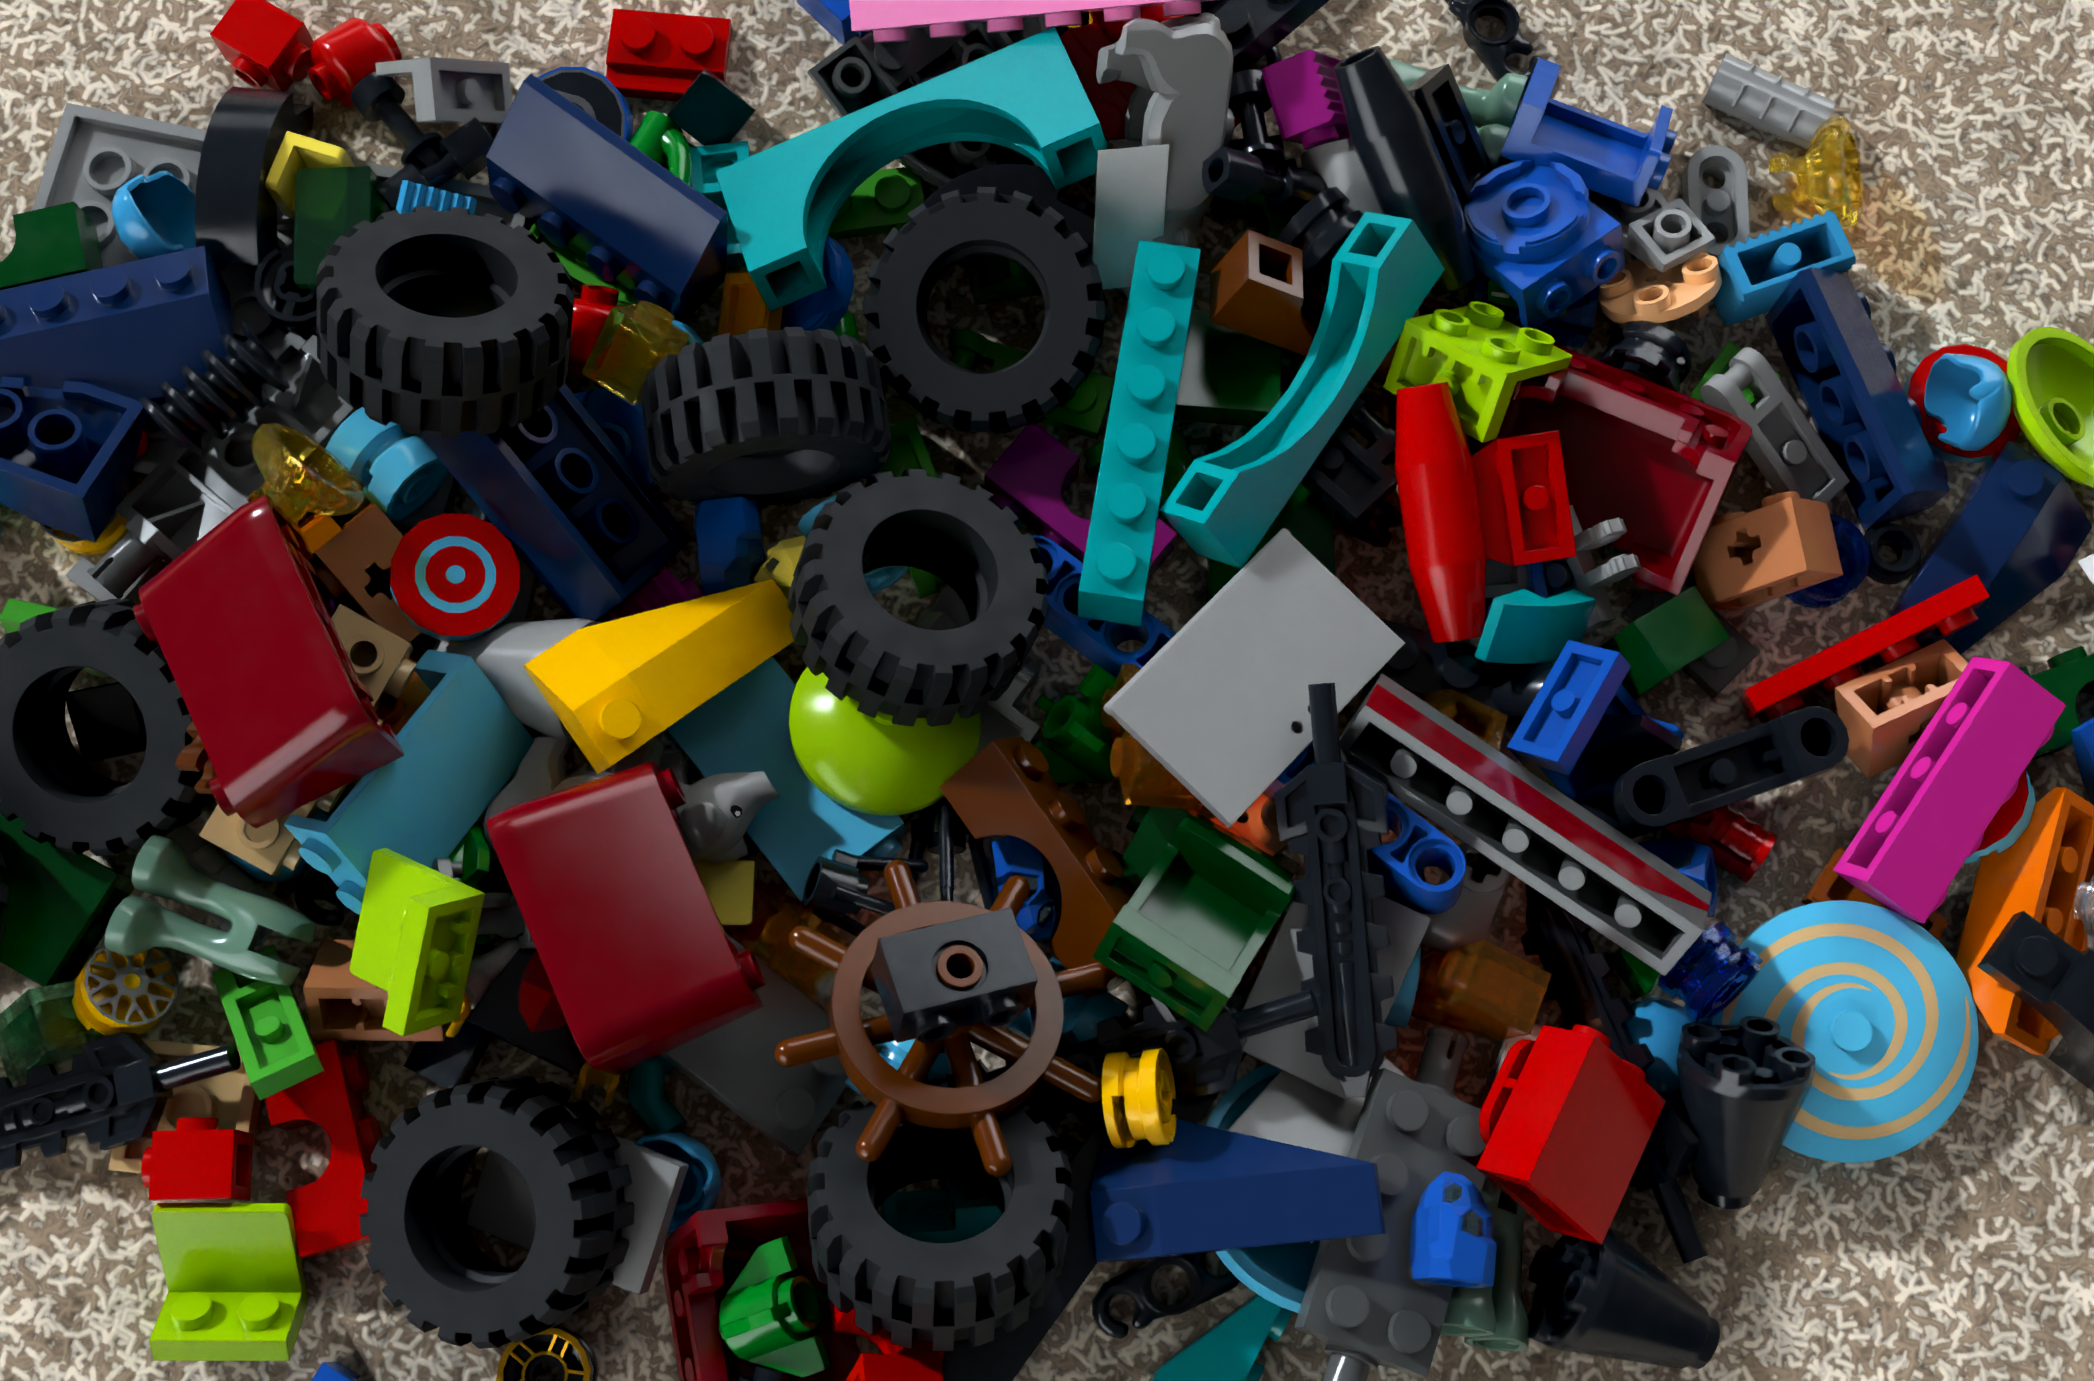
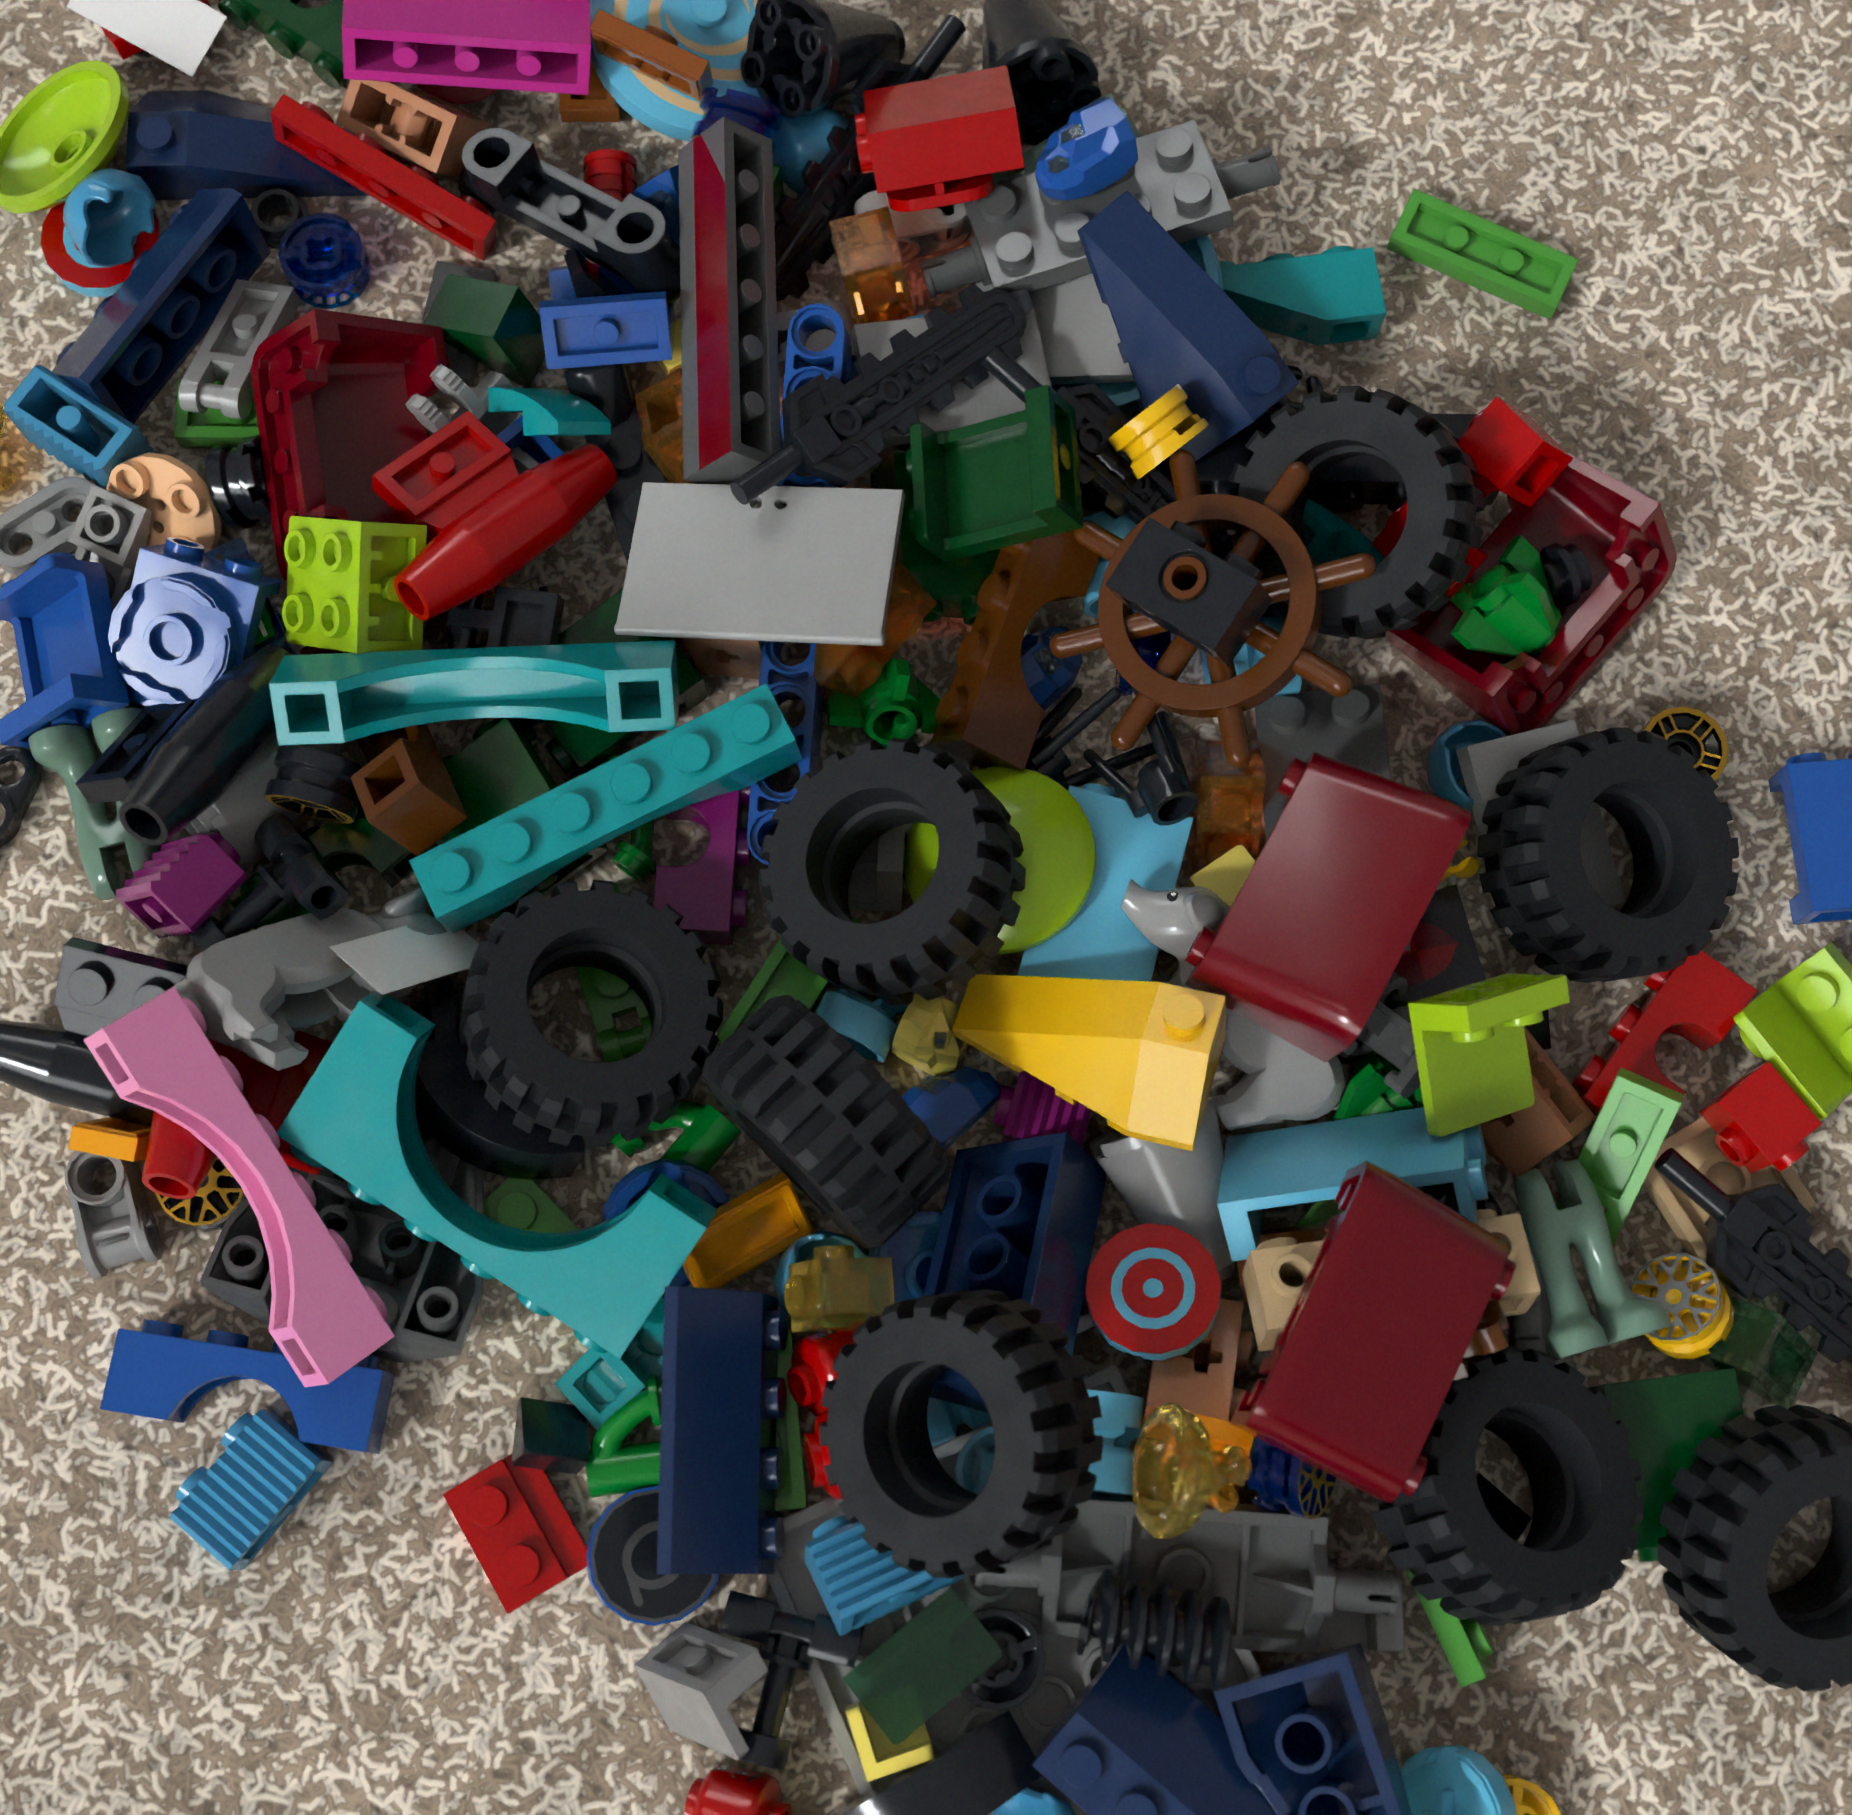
camera: 125 degrees left, 0 degrees up
(1766, 552) = (347, 255): nougat brick -> none
(1829, 938) = (651, 54): none -> dark orange plate

